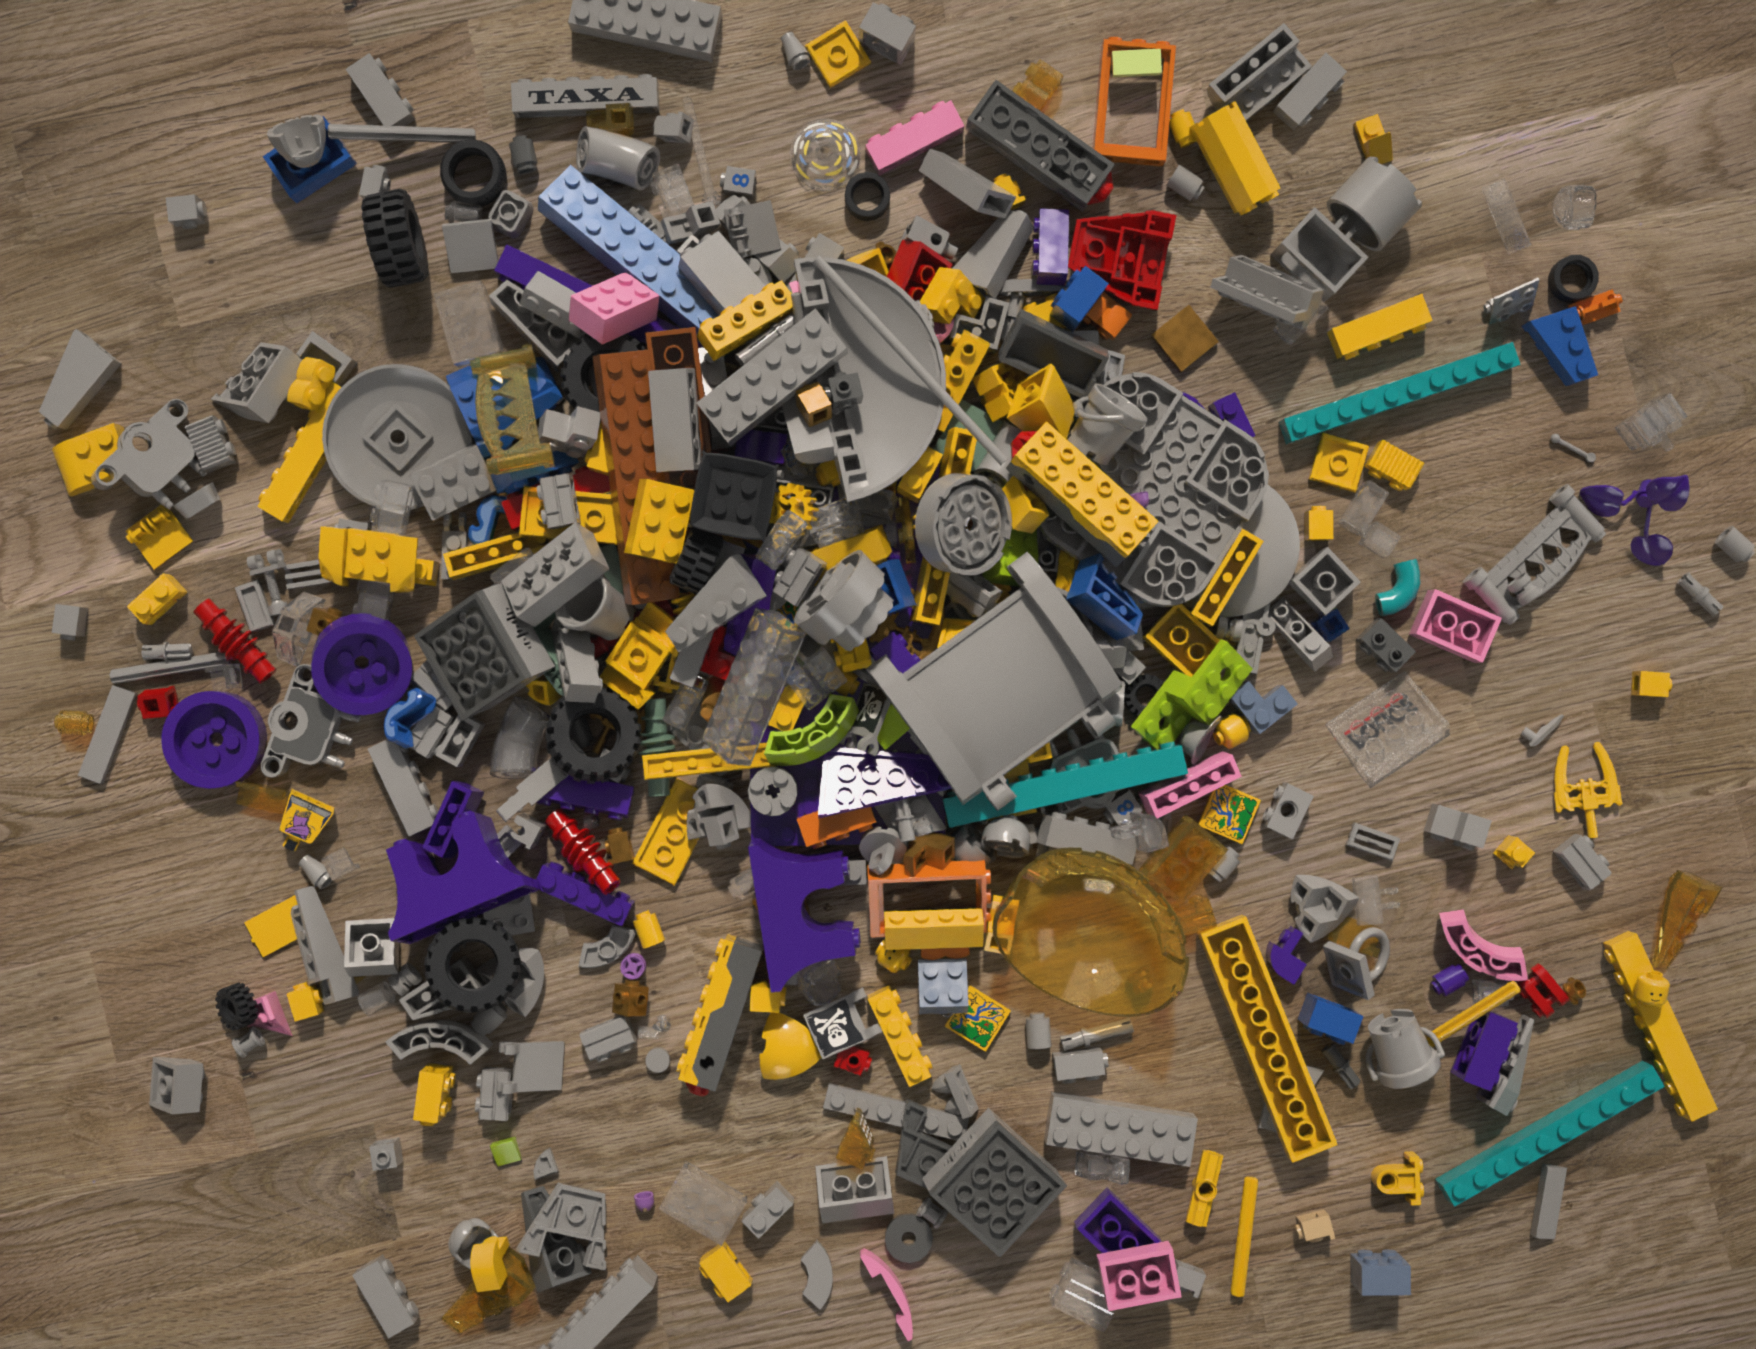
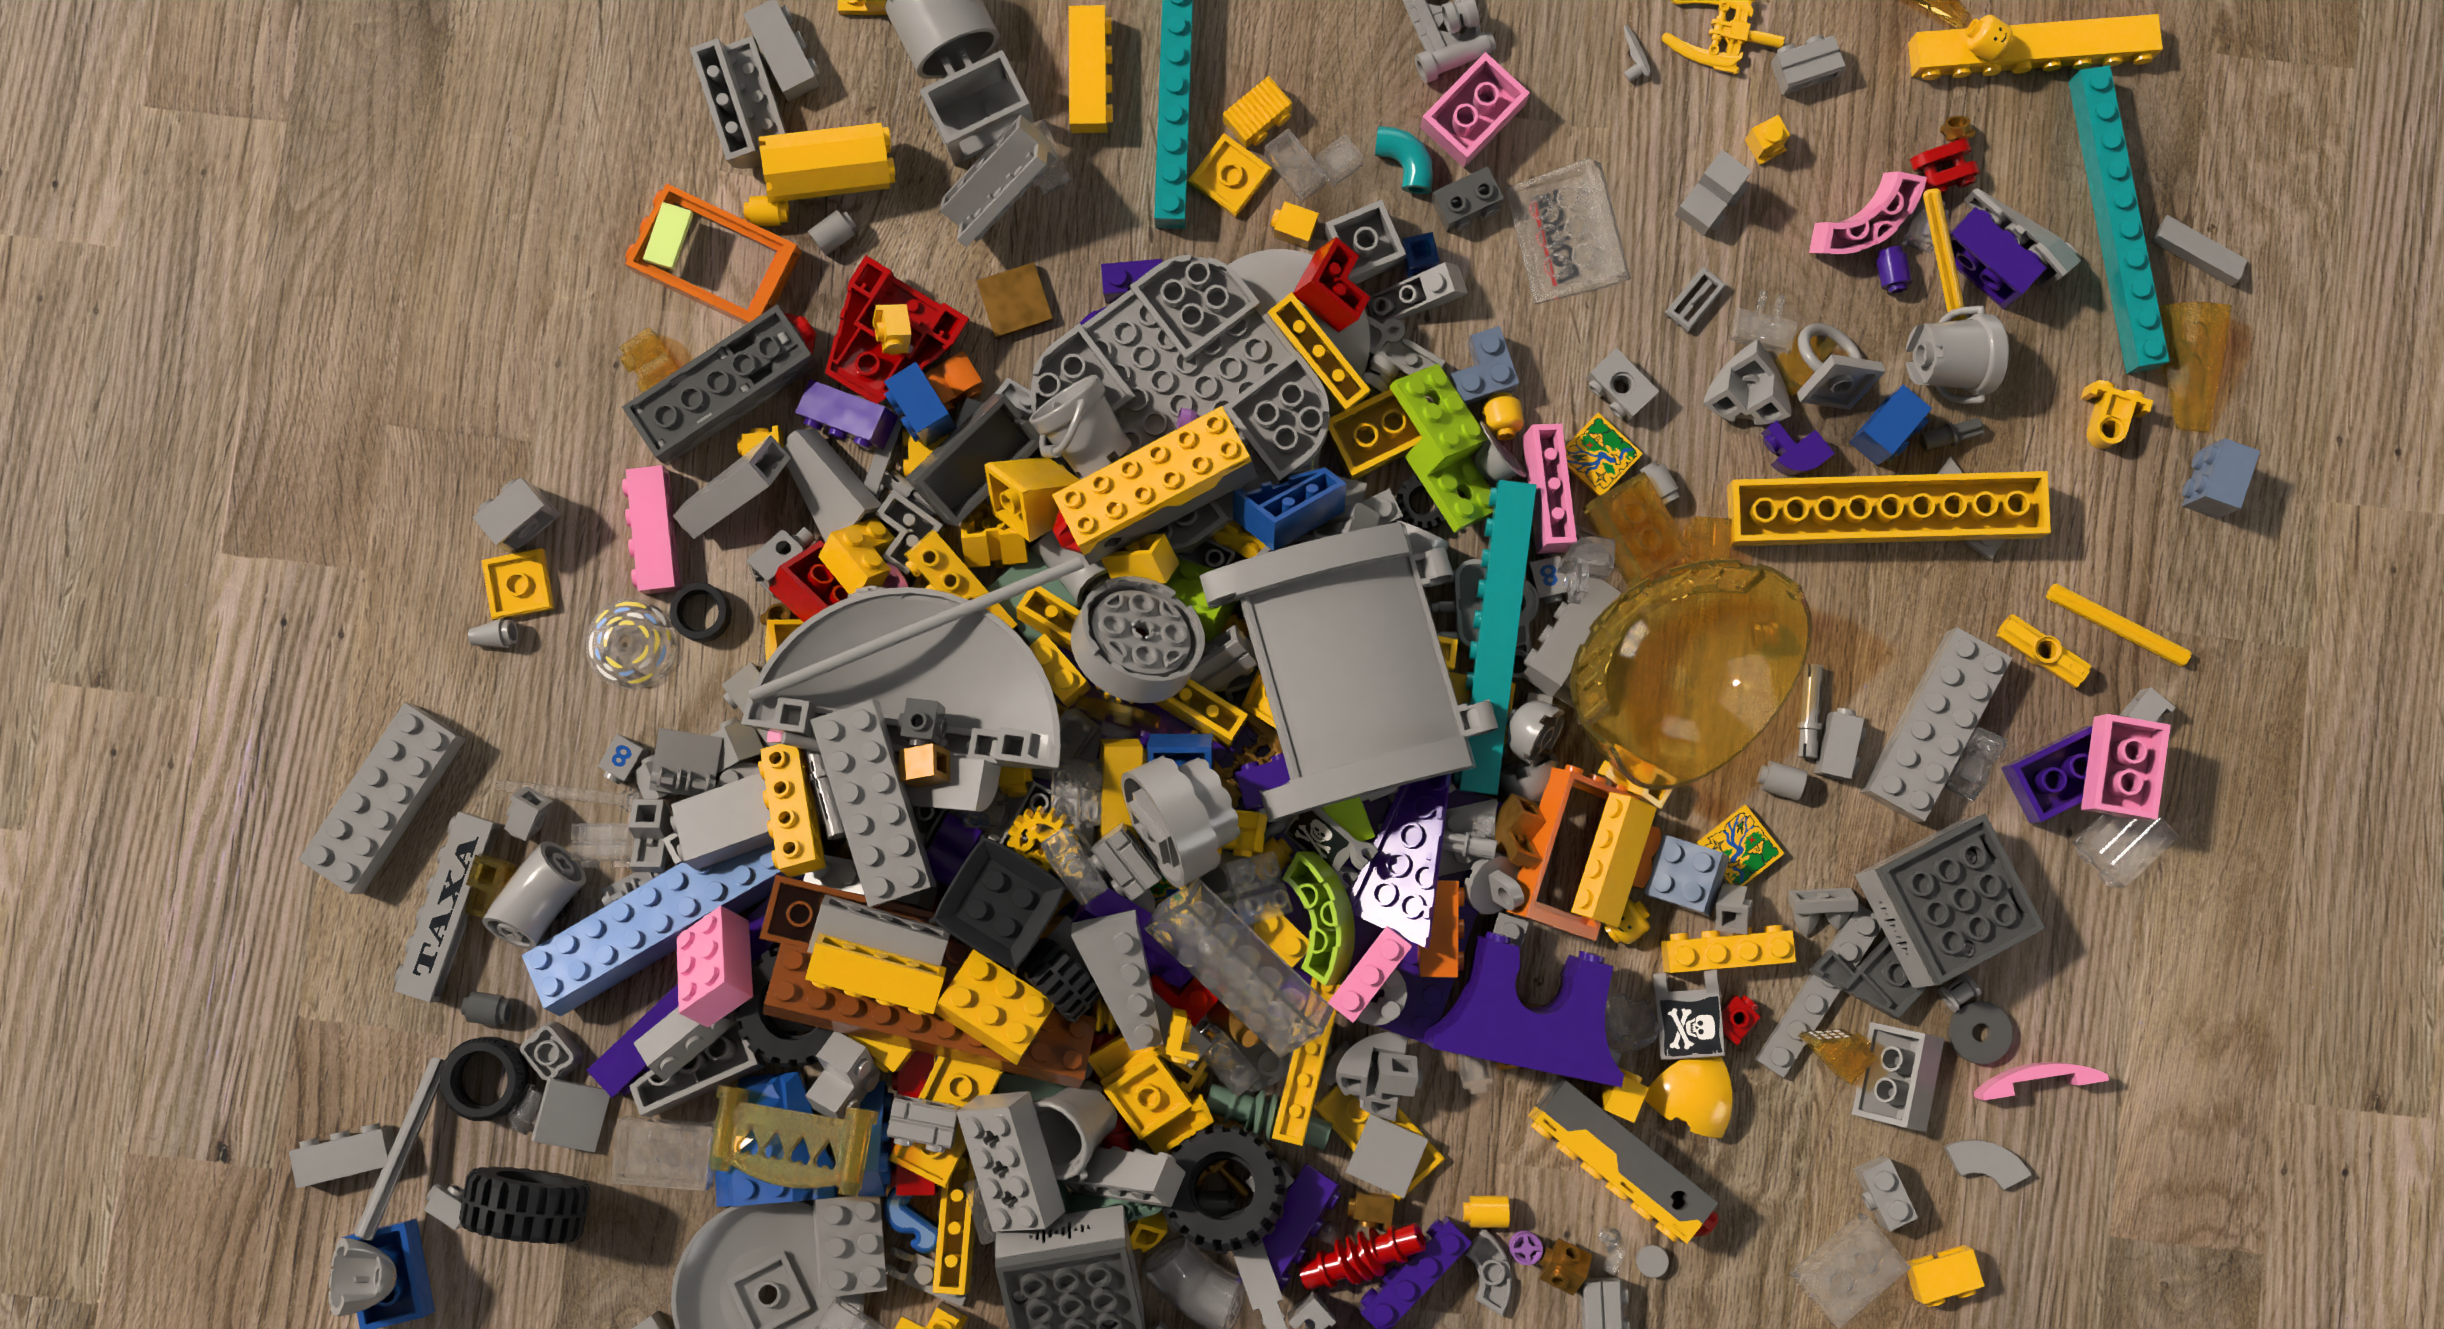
camera: 65 degrees left, 5 degrees down
(650, 426) = (875, 974): none -> yellow brick
(661, 843) = (1386, 1155): none -> light grey tile
(685, 661) = (1179, 1032): none -> yellow bracket
(784, 782) = (1370, 974): none -> bright pink plate
(930, 1028) = (1733, 909): none -> light grey brick
(1128, 256) = (892, 328): none -> yellow brick
(1277, 565) = (1327, 288): none -> red brick
(1314, 1226) = (2135, 536): tan brick -> none
(1471, 1223) = (2196, 349): none -> clear yellow wedge

